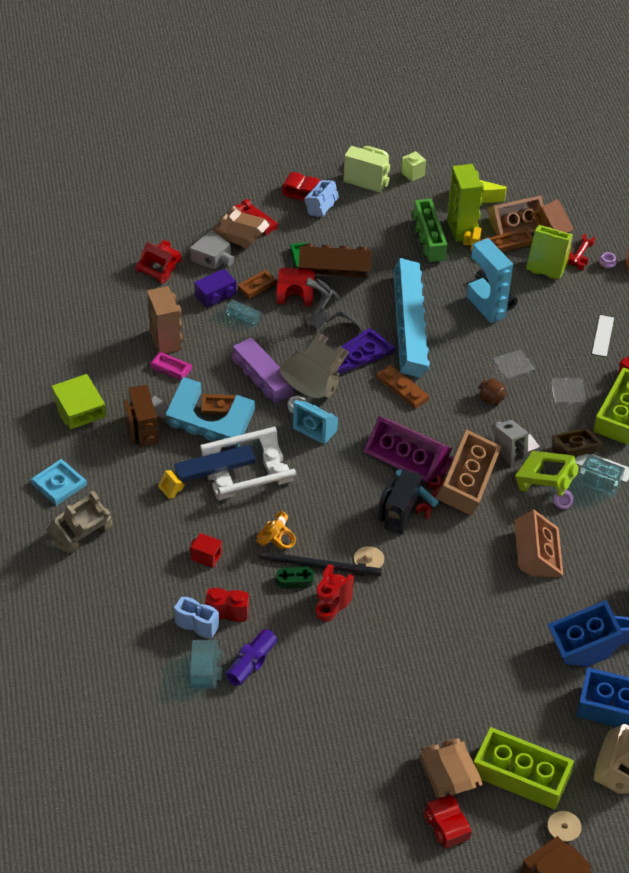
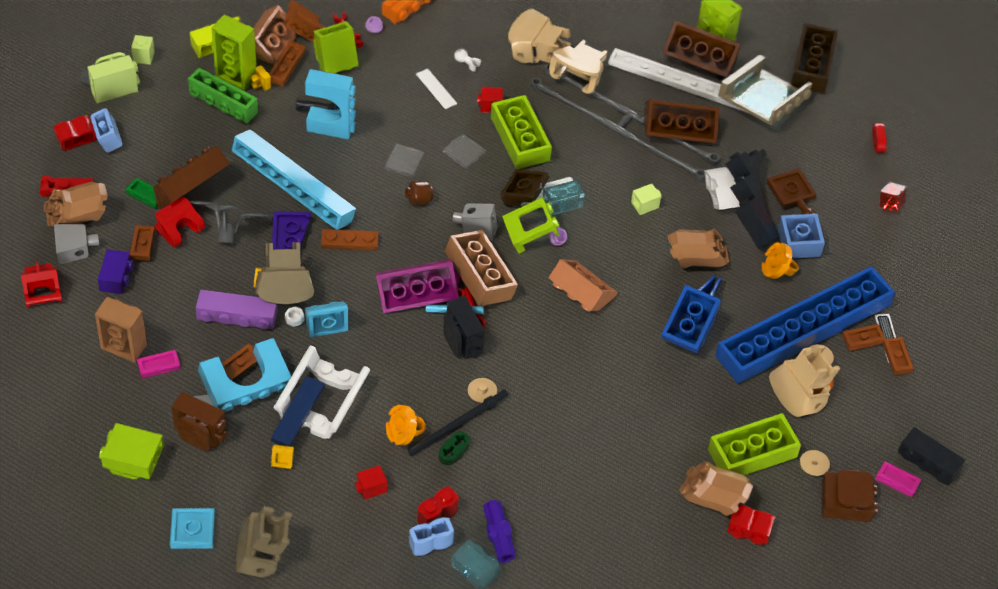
camera: 50 degrees left, 5 degrees up
(243, 312) = (160, 275): clear light blue piece -> none
(333, 592) = (499, 435): red piece -> none

